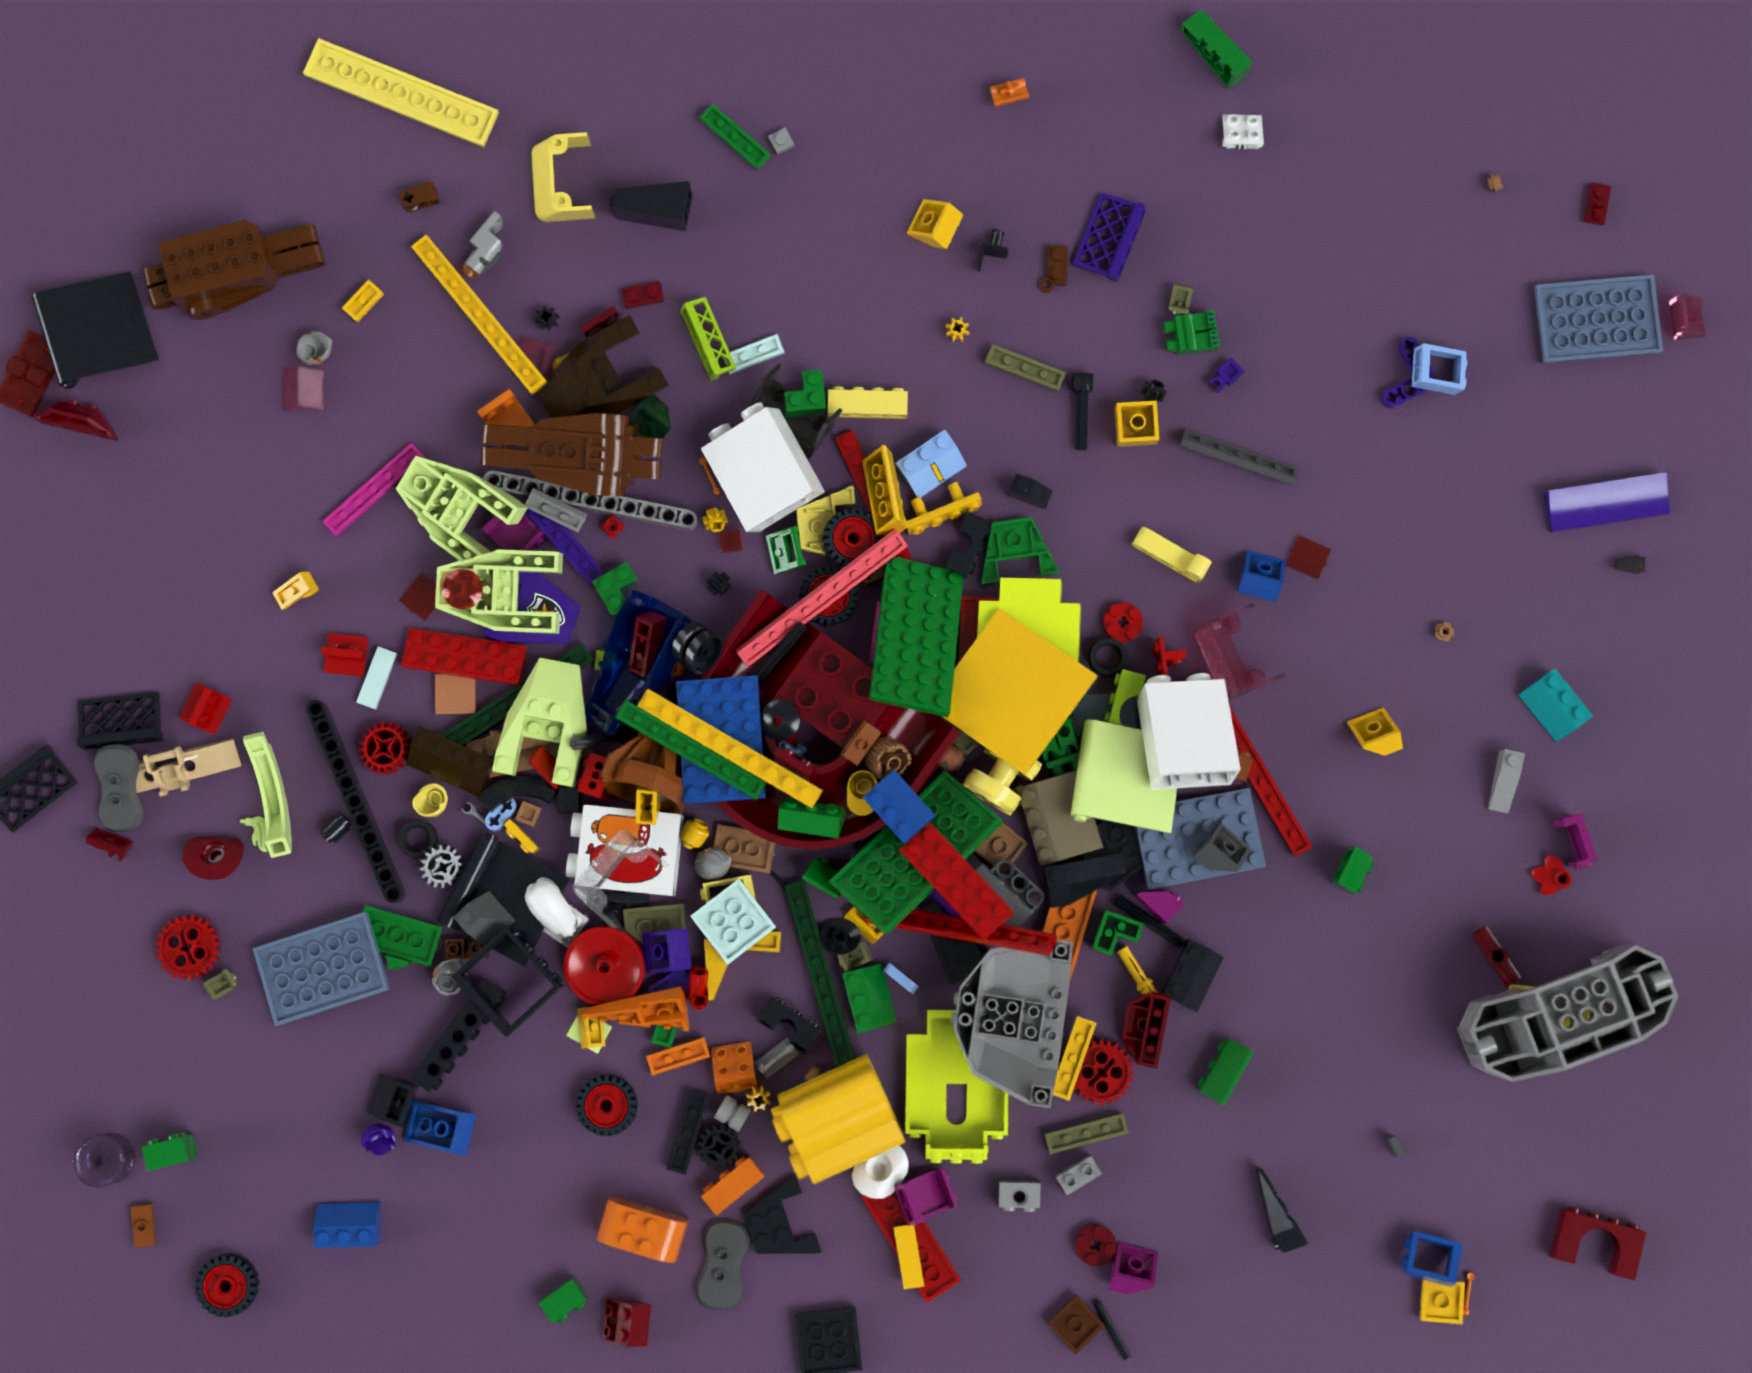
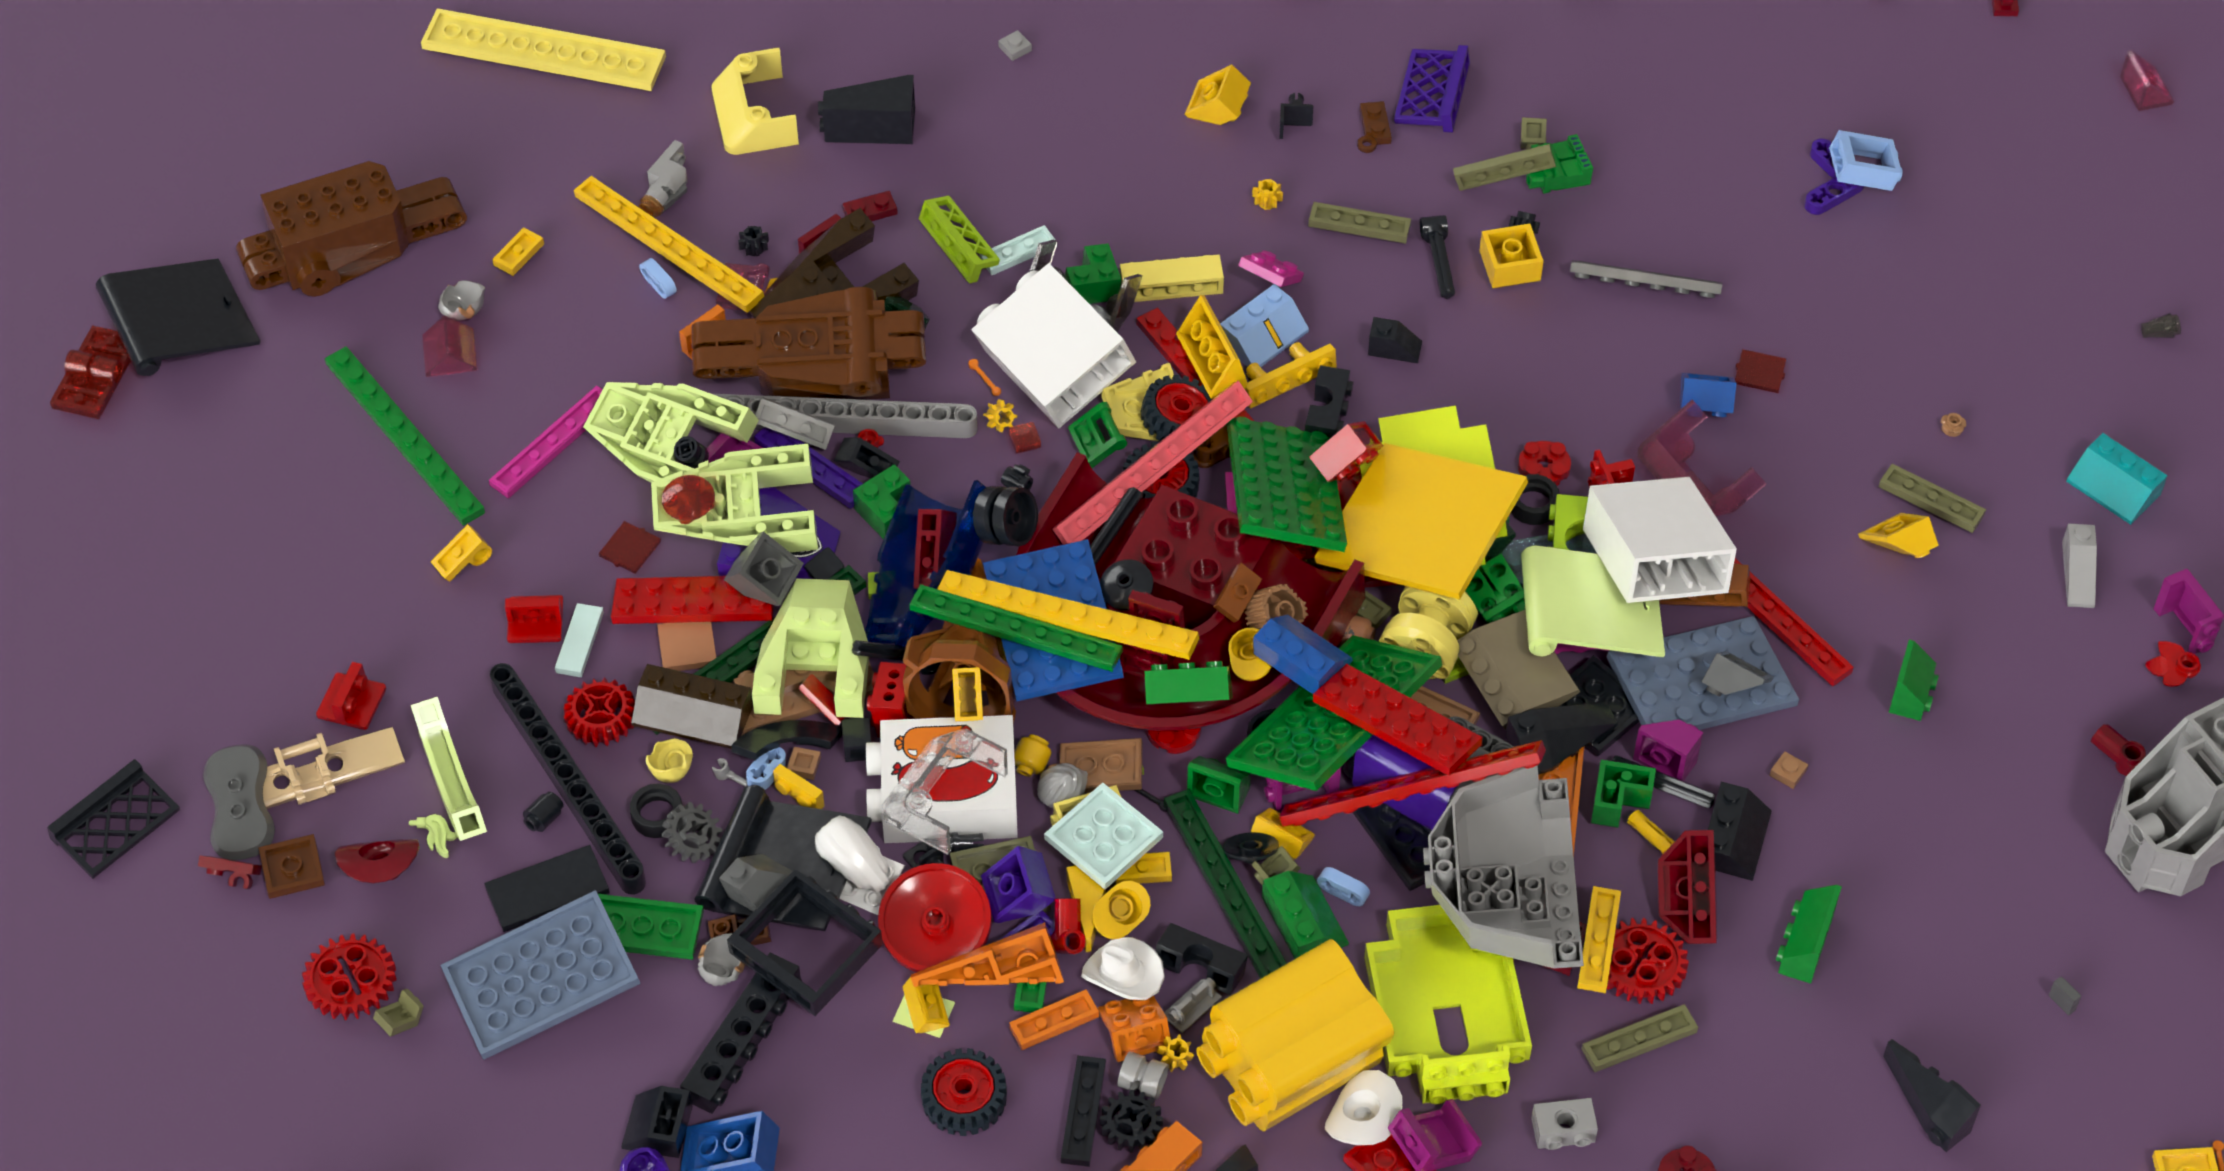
camera: 10 degrees left, 30 degrees down
(77, 418) = (157, 409): dark red wedge -> none
(126, 737) = (263, 737): black fence -> none
(153, 847) = (291, 866): none -> reddish brown plate
(262, 467) = (405, 436): none -> green plate
(334, 891) = (545, 887): none -> black tile
(396, 962) = (646, 956): green slope -> none
(421, 197) = (579, 142): reddish brown piece -> none
(468, 344) = (658, 278): none -> light blue beam
(473, 530) = (690, 452): none -> black wheel
(515, 654) = (764, 570): none -> dark grey slope
(563, 643) = (824, 565): none -> black slope
(607, 548) = (863, 457): none -> black slope
(732, 1026) = (1126, 969): none -> white hat
(735, 137) = (958, 45): green plate -> none
(737, 979) = (1121, 909): none -> yellow piece
(946, 409) = (1271, 269): none -> dark pink plate
(967, 619) = (1346, 452): none -> piece
(1015, 541) = (1388, 394): green wing -> none
(1078, 1174) = (1640, 1086): light grey brick -> none
(1141, 335) = (1504, 167): none -> olive plate
(1171, 555) = (1589, 384): light yellow beam -> none
(1228, 373) = (1609, 199): dark purple plate -> none
(1244, 924) = (1788, 770): none -> medium nougat plate
(1410, 700) = (1932, 498): none -> olive plate
(1452, 1261) = (2155, 1137): blue window -> none
(1598, 319) = (2041, 98): sand blue plate -> none
(1607, 502) = (2111, 269): arch -> none

